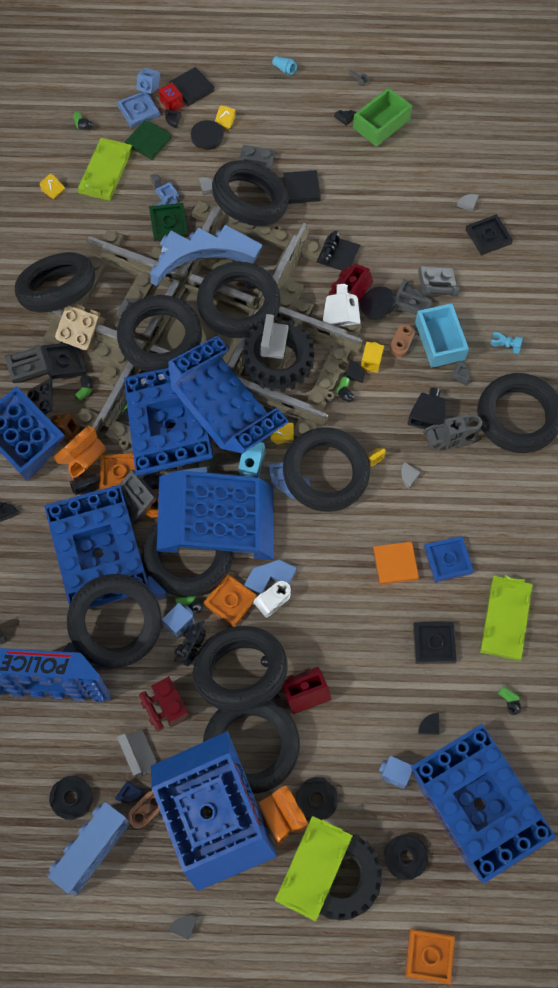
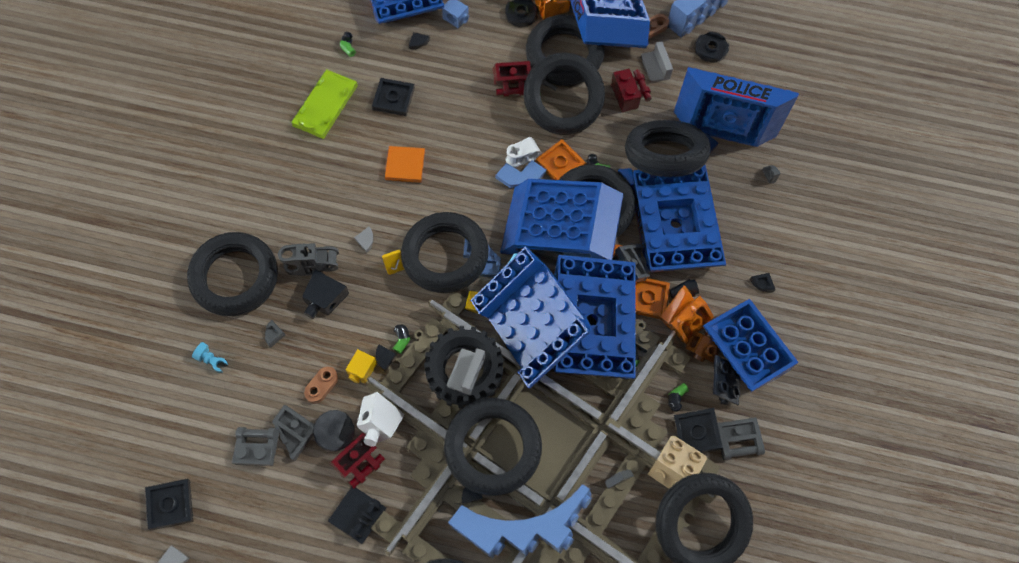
camera: 170 degrees left, 0 degrees up
(129, 793) = (668, 41): dark blue tile -> none
(149, 307) = (590, 457): black tyre -> none
(178, 620) = (610, 150): medium blue brick -> none
(193, 636) = (602, 127): black hinge -> none
(441, 335) = (278, 371): medium azure piece -> none
(448, 559) = (356, 159): blue tile -> none

